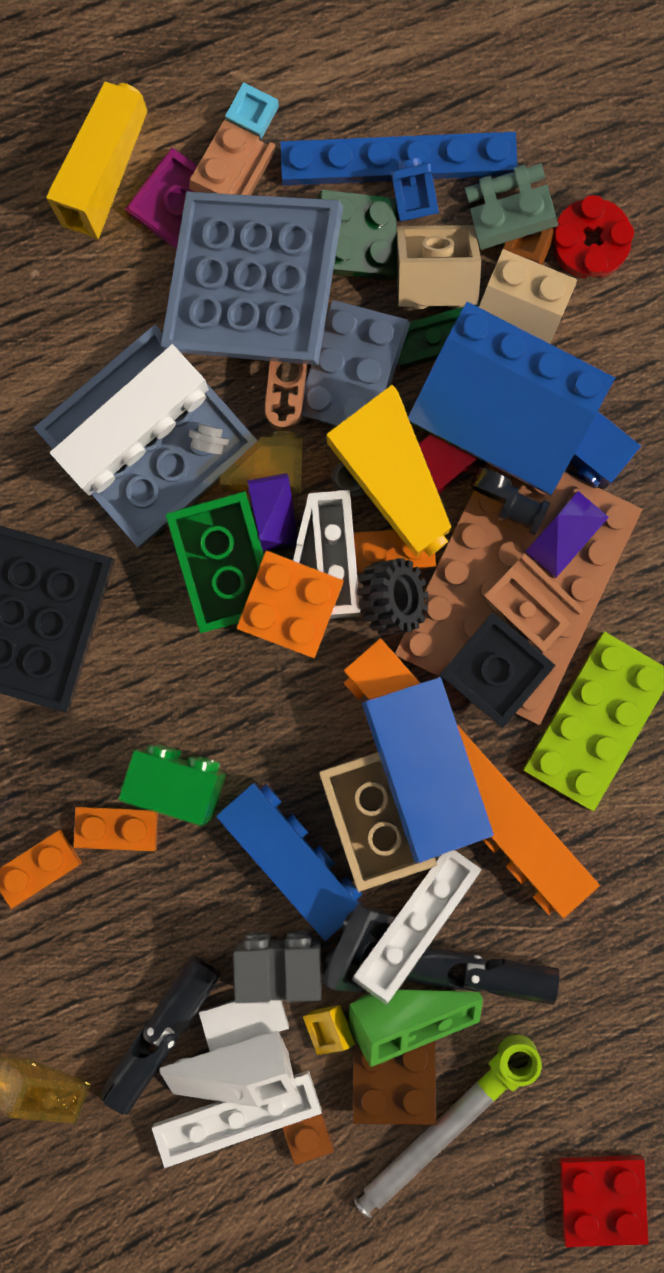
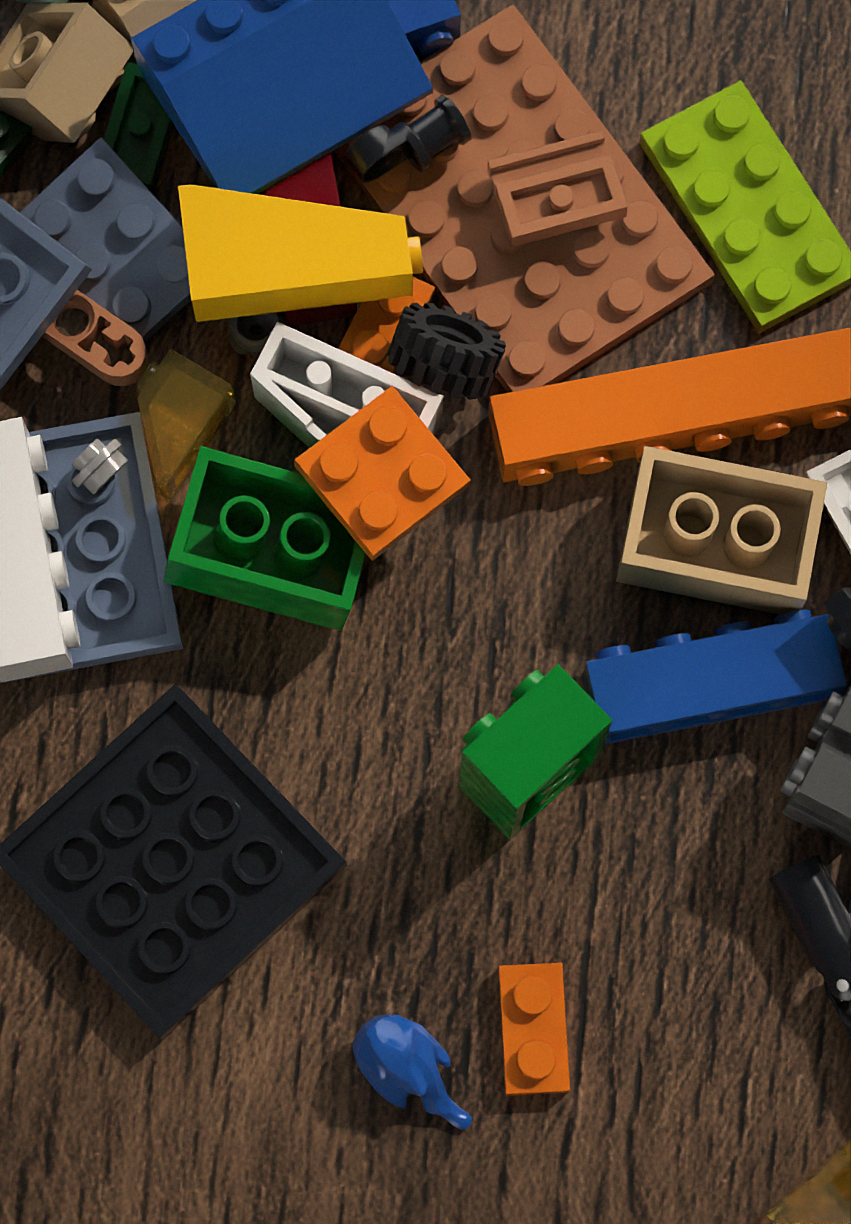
camera: 65 degrees left, 10 degrees down
(115, 828) = (540, 889): orange plate -> none
(273, 512) = (240, 432): dark purple slope -> none
(427, 770) = (697, 424): blue tile -> none
(497, 670) = (616, 278): black plate -> none
(566, 534) = (491, 103): dark purple slope -> none

